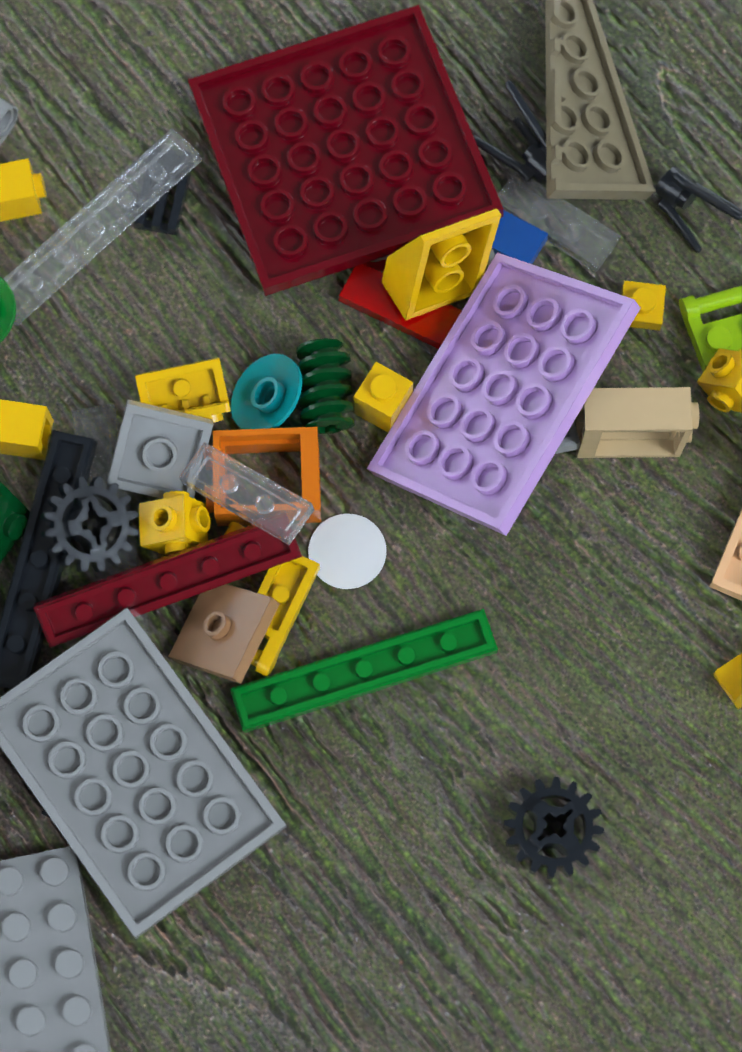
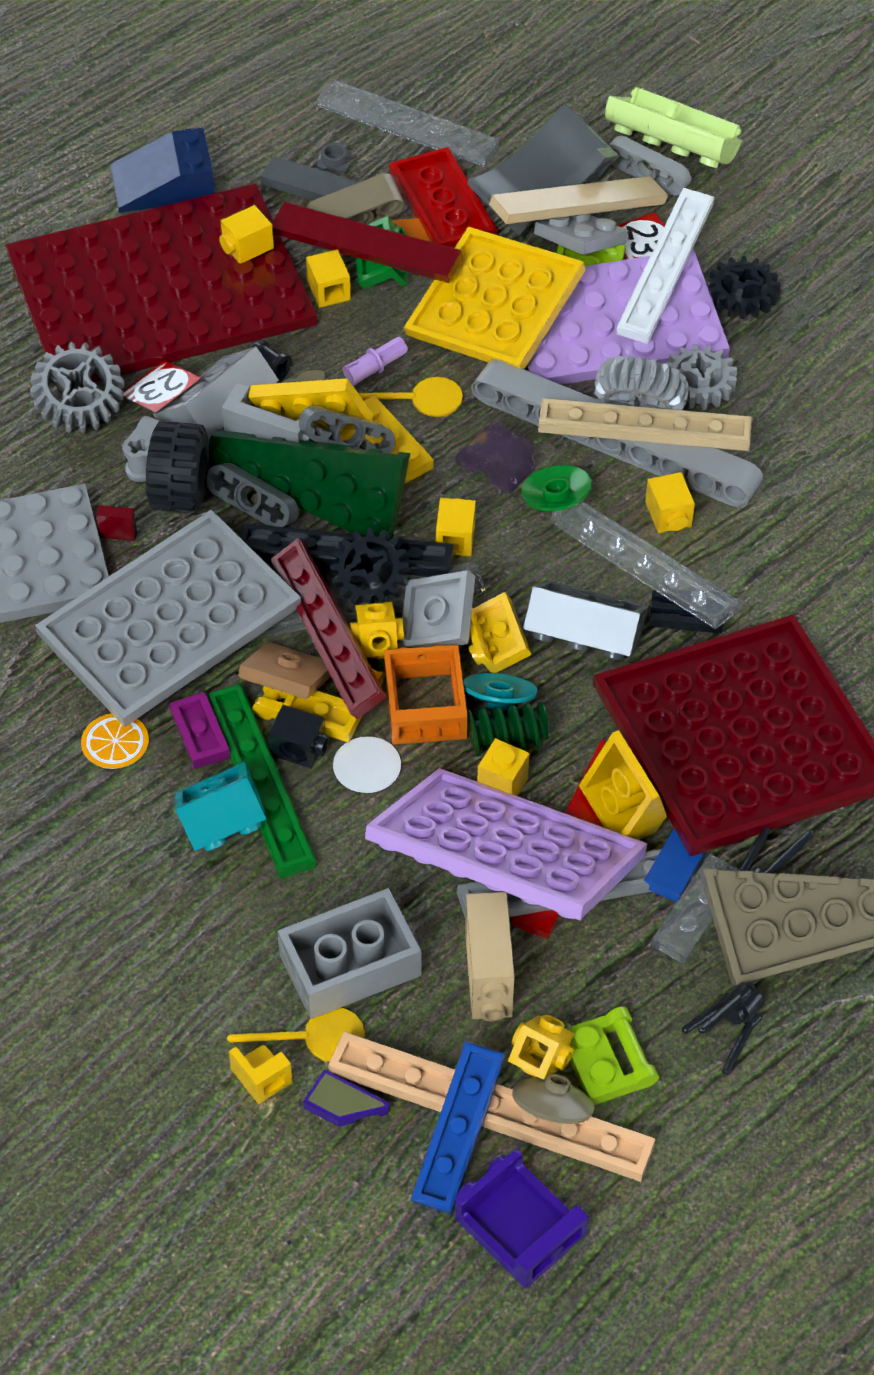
camera: 85 degrees right, 20 degrees down
(170, 293) = (585, 619): none -> slope
(247, 493) = (397, 662): clear tile -> none
(296, 737) = (199, 730): none -> magenta plate
(301, 848) = (113, 745): none -> light orange sticker
(317, 621) = (298, 737): none -> black brick
(413, 712) = (220, 807): none -> teal slope
(540, 810) = (120, 914): black gear -> none
(620, 570) = (349, 953): none -> light grey brick
(651, 303) = (619, 981): yellow plate -> none
(699, 609) = (320, 1034): none -> yellow piece

